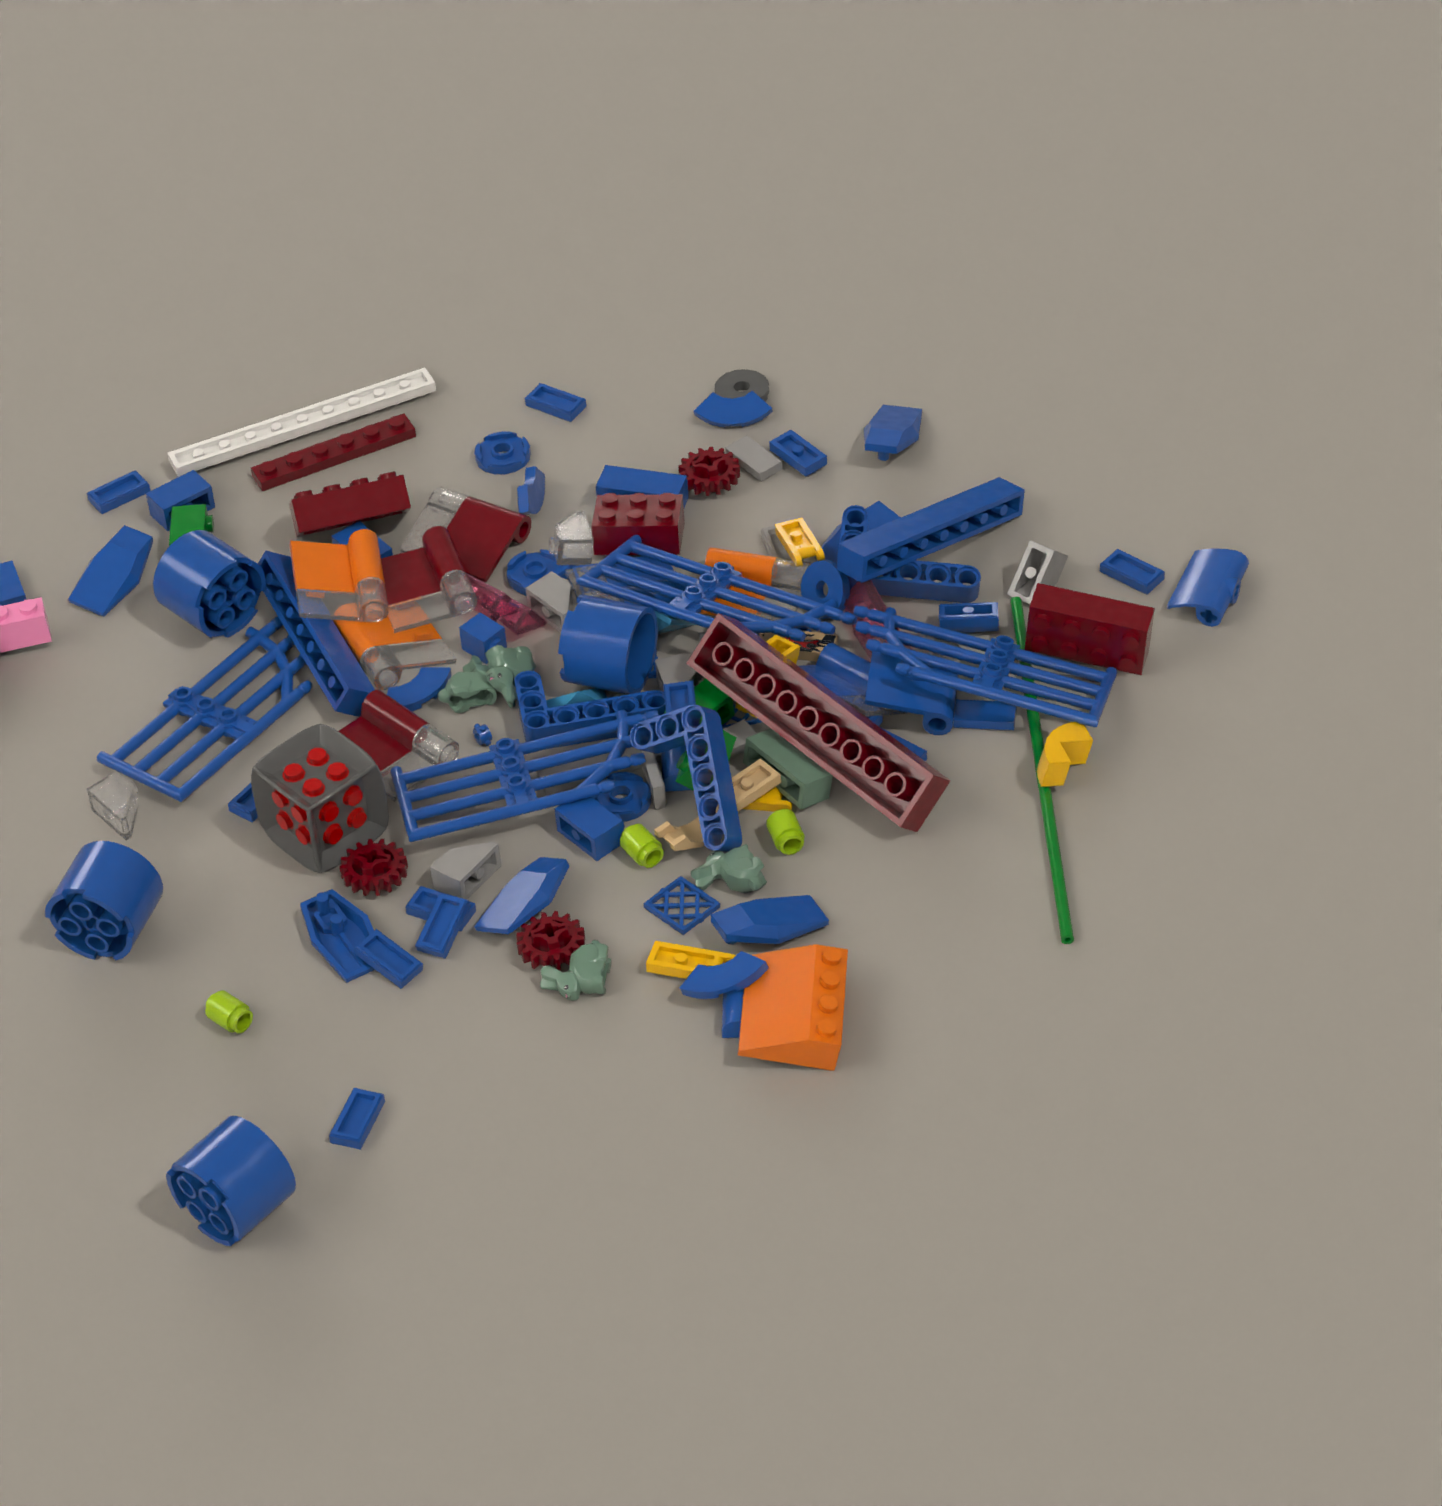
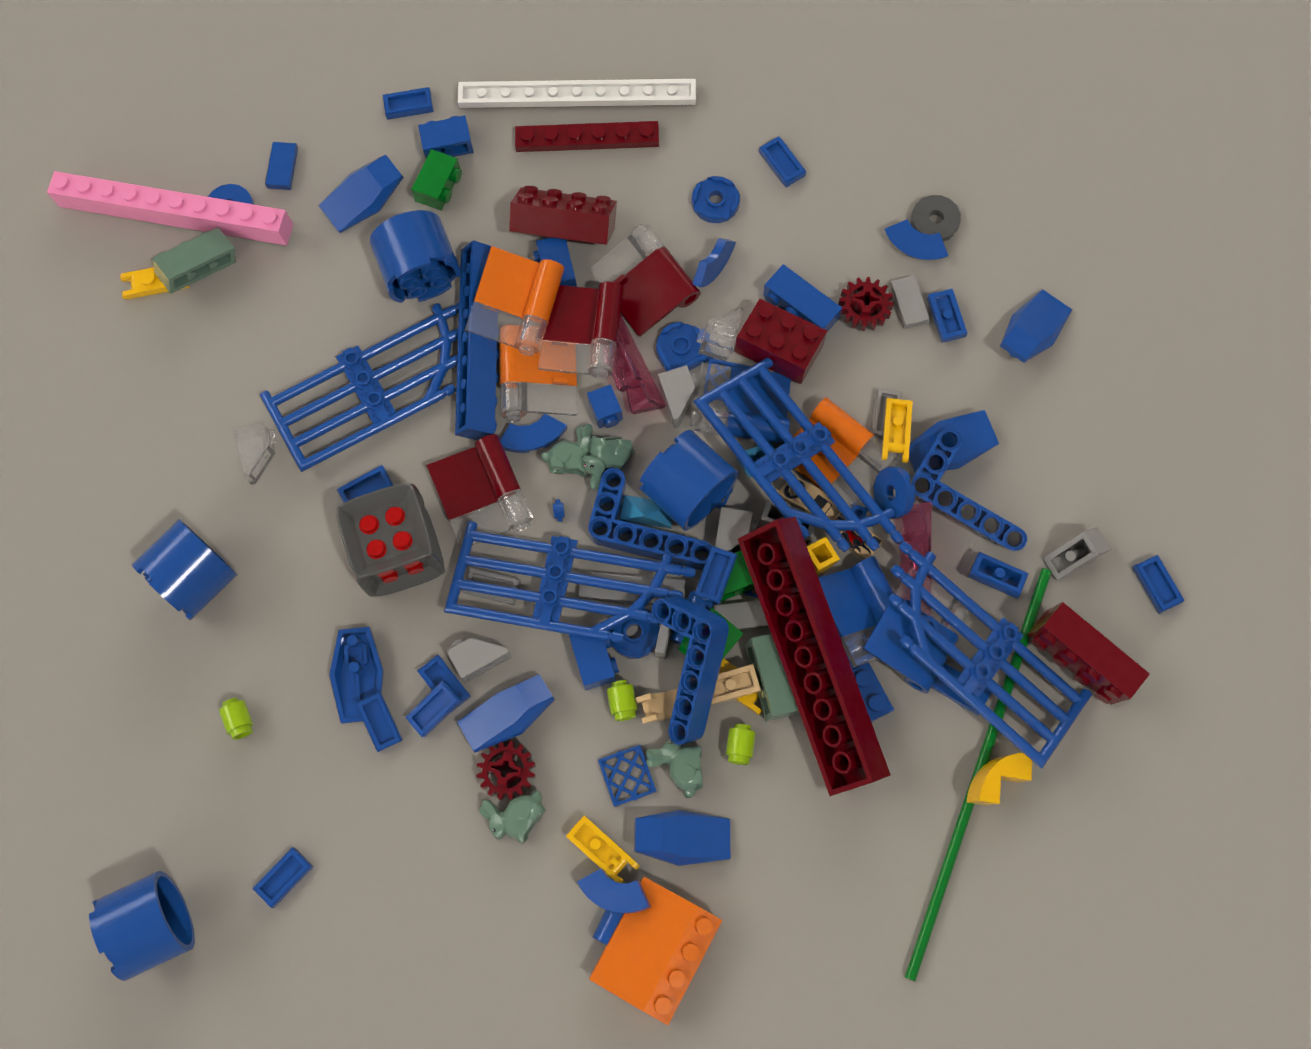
camera: 25 degrees right, 30 degrees up
(373, 867) = (405, 626): dark red gear -> none
(929, 529) = (1006, 476): blue brick -> none
(1210, 583) = (1215, 636): blue panel -> none

